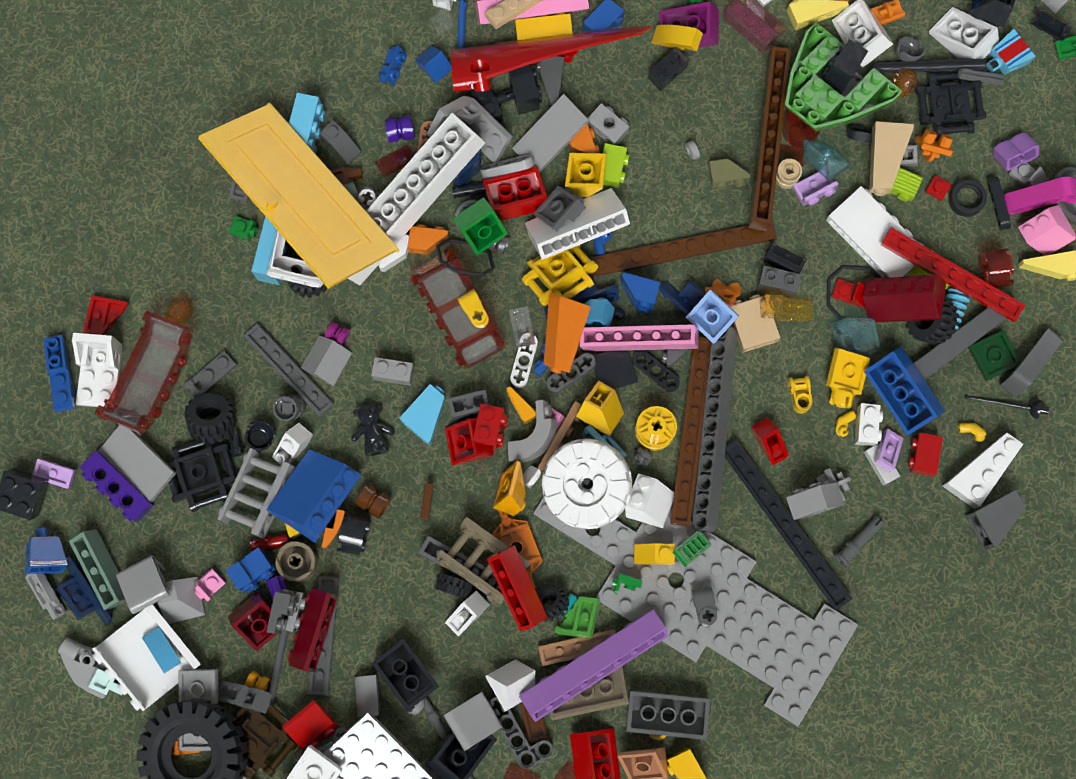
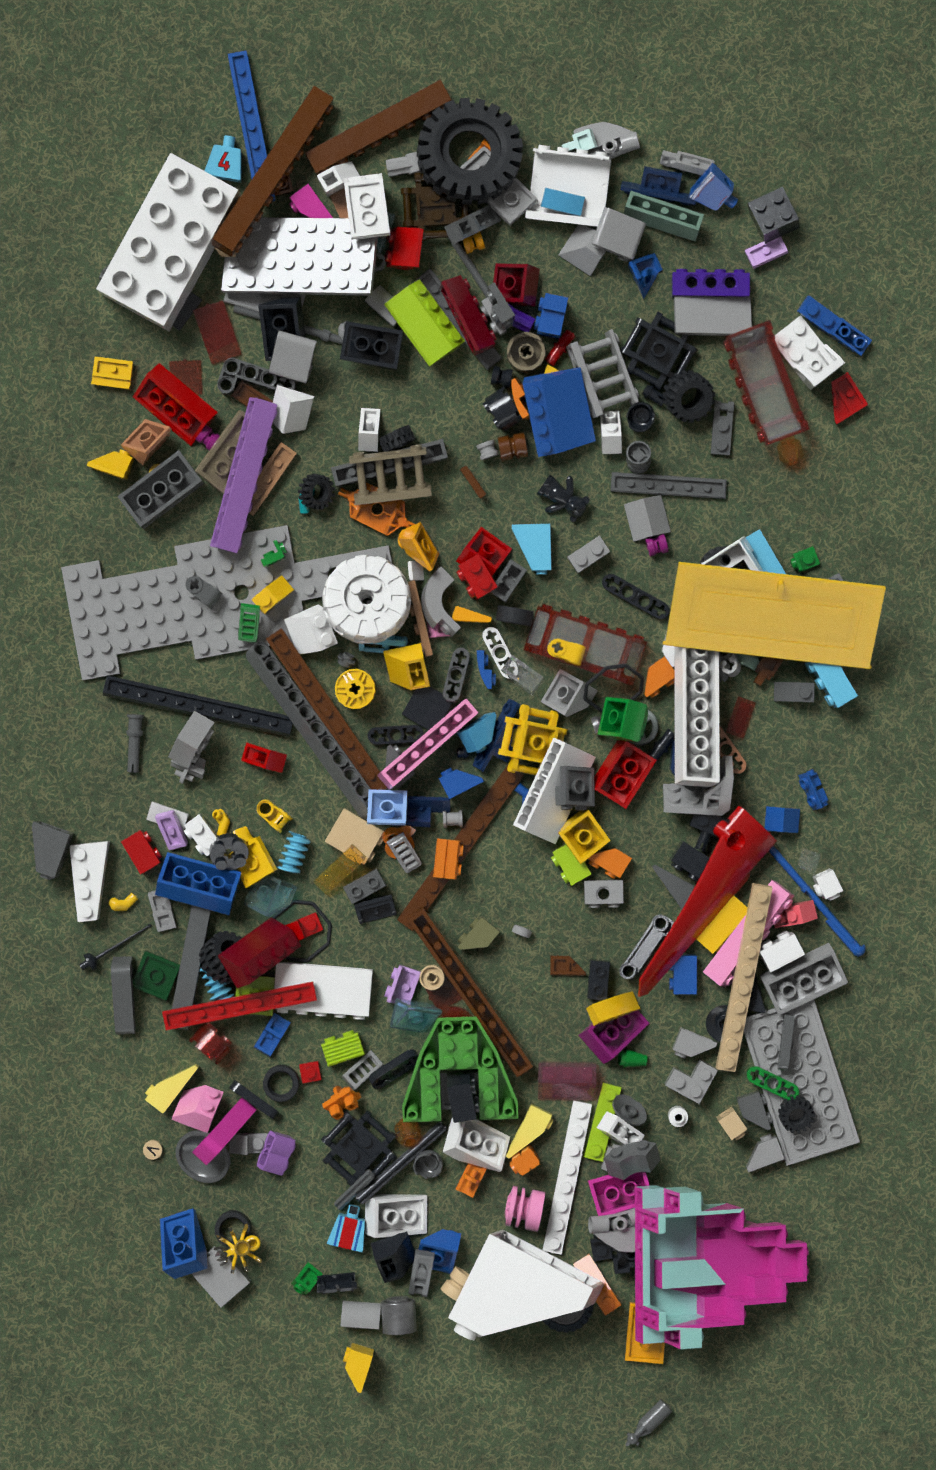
camera: 135 degrees right, 10 degrees up
(155, 541) = (644, 272): none -> blue slope
(208, 584) = (575, 277): bright pink bracket -> none
(332, 561) = (505, 379): none -> black wheel
(350, 655) = (424, 322): none -> lime slope
(386, 312) = (637, 593): none -> black beam
(394, 516) = (487, 450): none -> light grey wheel
(399, 129) = (759, 743): dark purple wheel -> none
(488, 375) = (514, 615): none -> black tyre
(503, 285) = (567, 694): none -> light grey slope
(507, 166) = (649, 788): light grey beam -> none
(517, 588) = (346, 477): red brick -> none
(552, 132) = (638, 843): light grey tile -> none
(563, 332) = (486, 696): orange slope -> none
(581, 618) = (284, 501): bright green wing -> none
(595, 721) = (207, 437): none -> magenta wheel
(609, 61) = (646, 947): none -> piece
(669, 272) = (452, 819): none -> light grey bush
(683, 101) = (564, 966): none -> reddish brown tile
(700, 245) = (446, 858): none -> orange brick
(728, 276) = (408, 862): none -> light grey slope
(810, 350) = (294, 853): none -> medium azure piece
(857, 383) = (237, 846): none -> black plate
(887, 152) = (370, 1058): tan slope -> none
(944, 238) = (272, 1035): none -> blue slope
(949, 396) = (162, 912): none -> light grey slope

